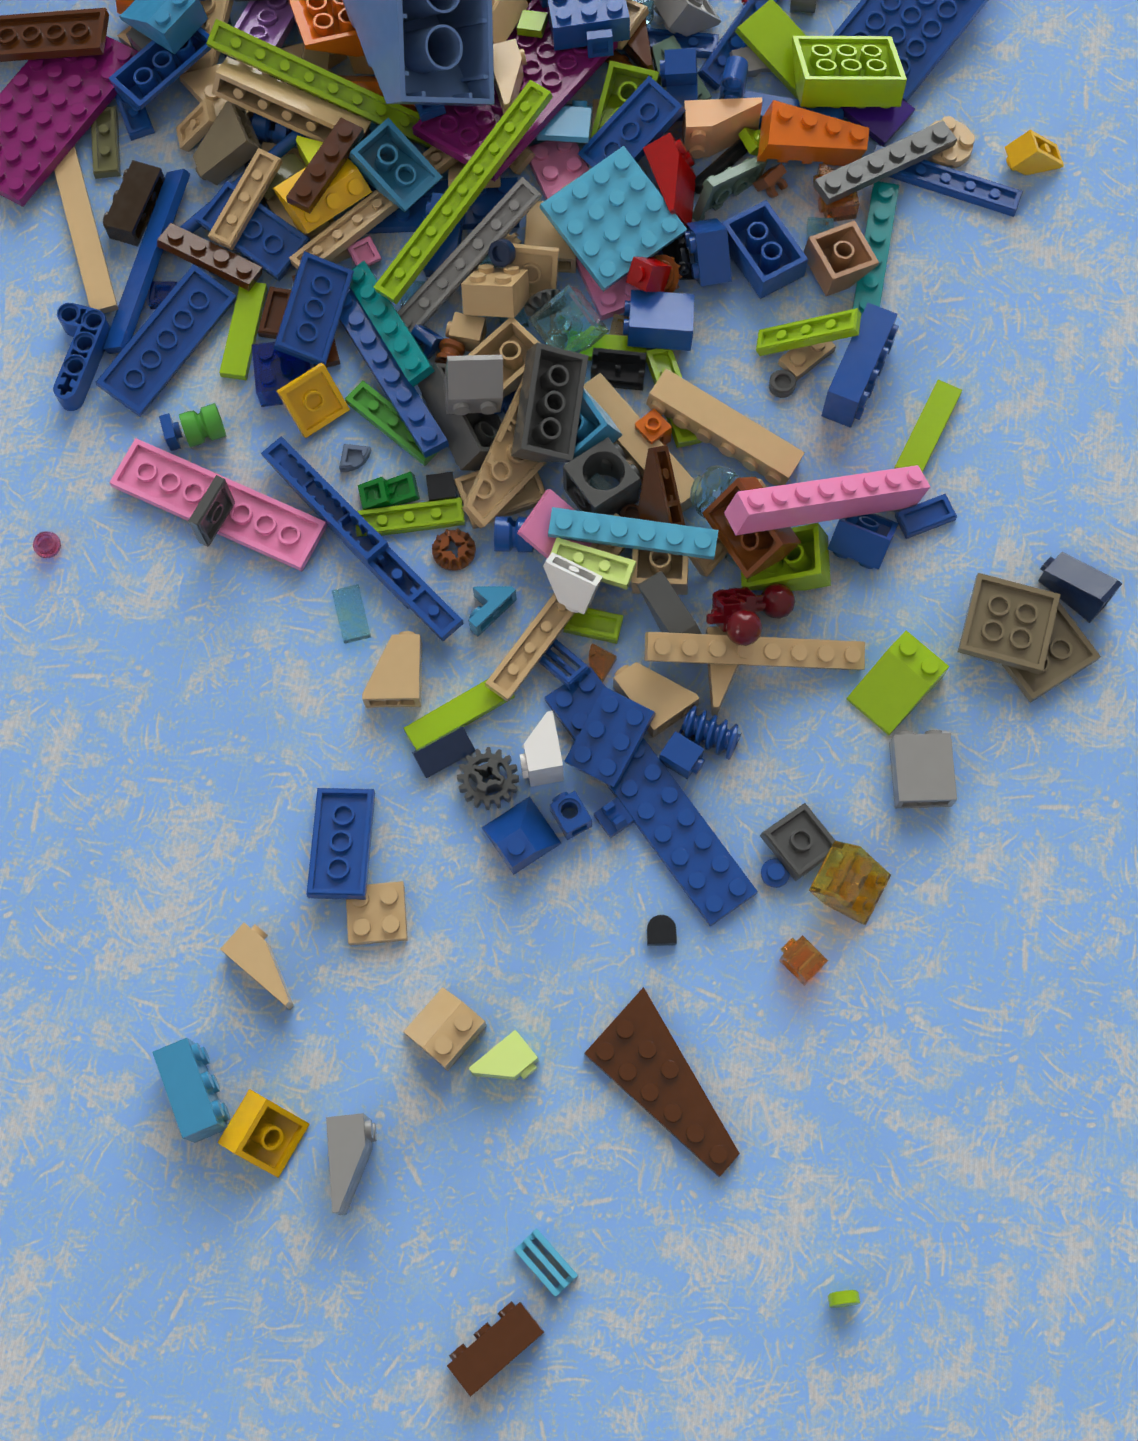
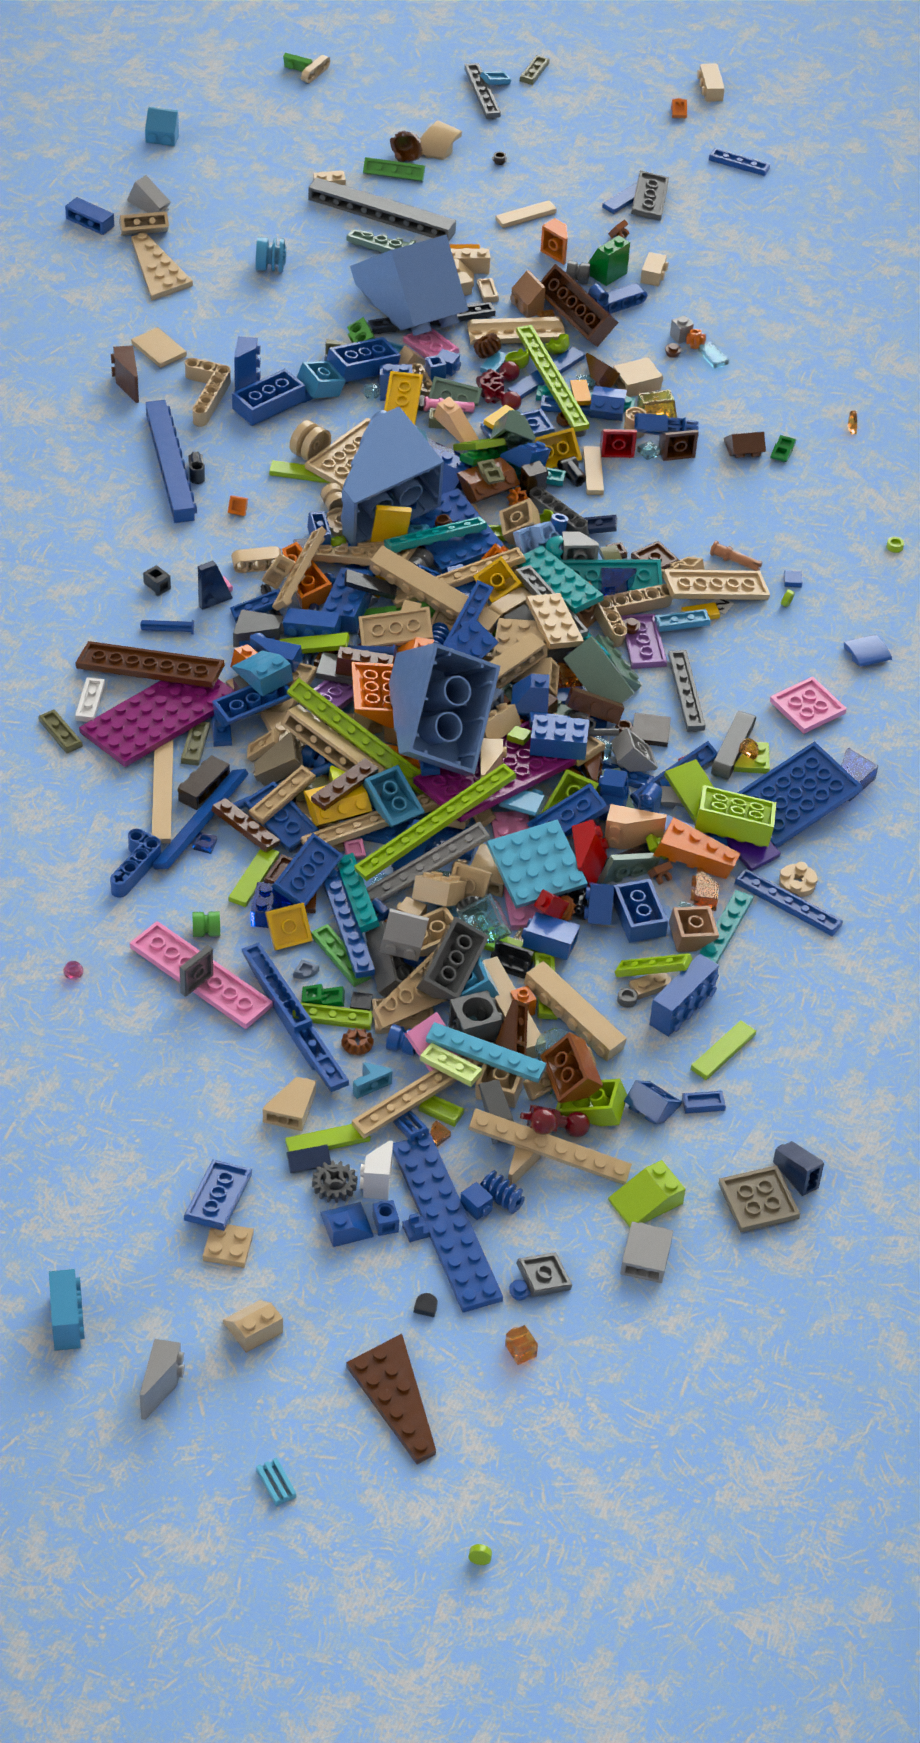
camera: 10 degrees right, 25 degrees down
(166, 340) = (198, 868): blue plate -> none
(171, 431) = (183, 923): blue plate -> none
(257, 959) = (133, 1246): tan slope -> none
(263, 1133) = (105, 1352): yellow slope -> none
(351, 614) = (271, 1062): clear light blue tile -> none
(494, 1347) = (223, 1519): reddish brown brick -> none
(502, 253) = (451, 865): dark blue tile -> none
(507, 1060) = (289, 1351): yellowish green slope -> none
(571, 583) = (432, 1071): white slope -> none
(599, 43) = (562, 756): blue plate -> none
(610, 737) = (428, 1174): blue plate -> none
(656, 693) = (468, 1160): tan slope -> none
(825, 499) = (629, 1061): bright pink brick -> none
(850, 881) = (572, 1306): clear yellow slope -> none
(884, 162) = (745, 877): plate -> none
(1009, 623) = (738, 1175): dark tan plate -> none
(1033, 154) = (857, 899): yellow slope -> none

